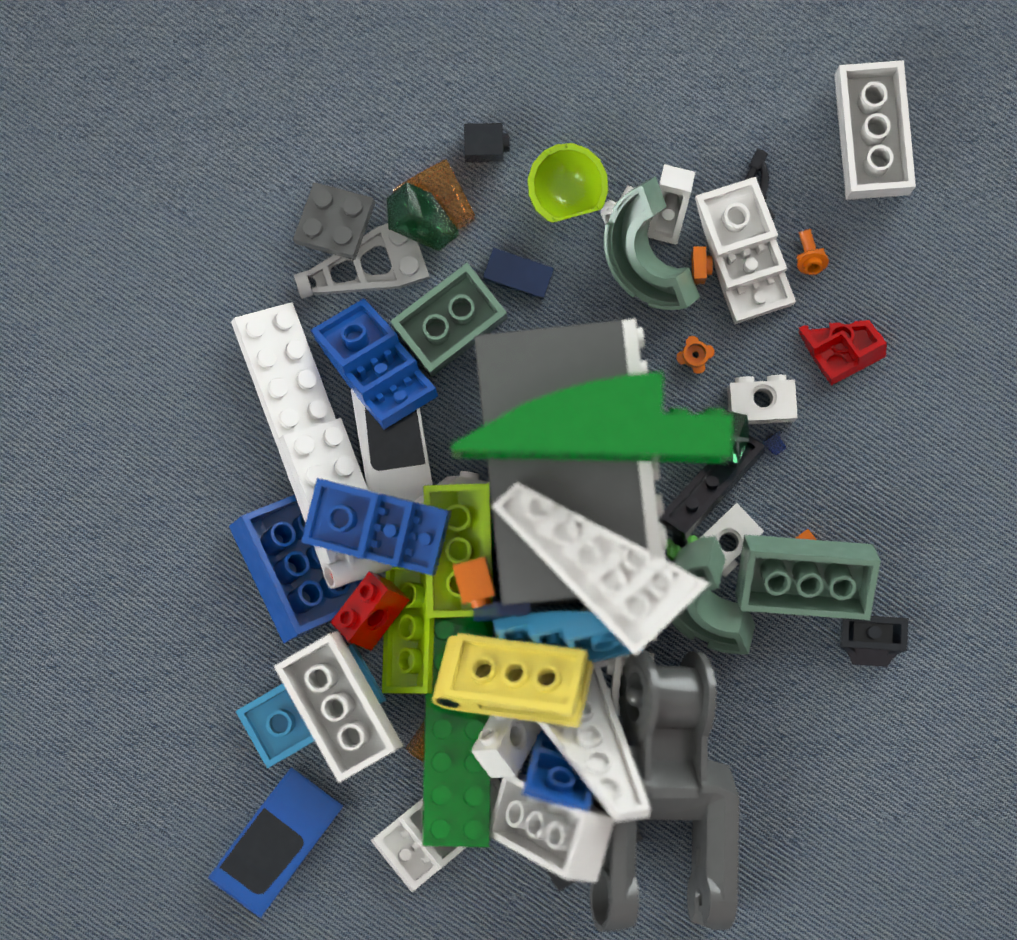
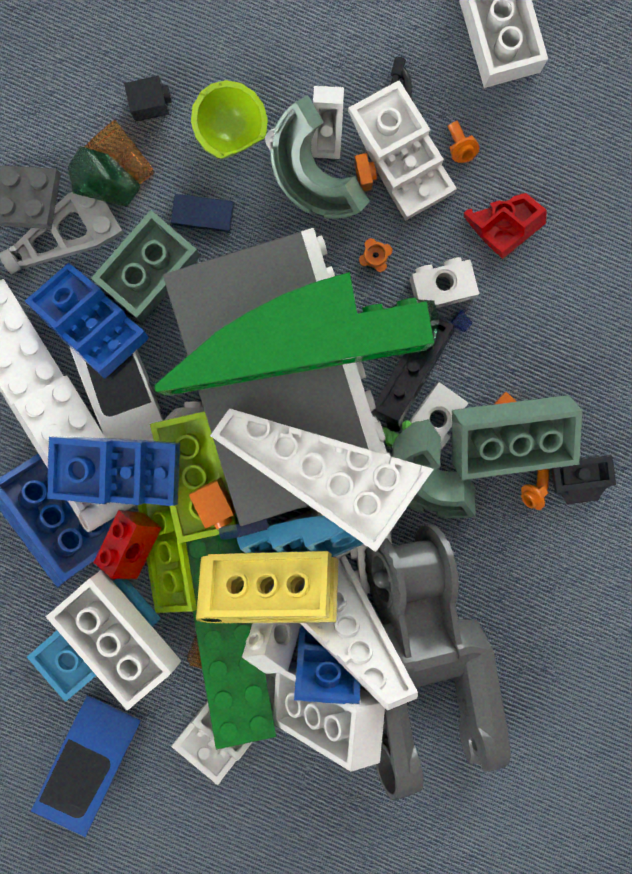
camera: 15 degrees left, 5 degrees up
(816, 645) = (533, 495): none -> orange plate

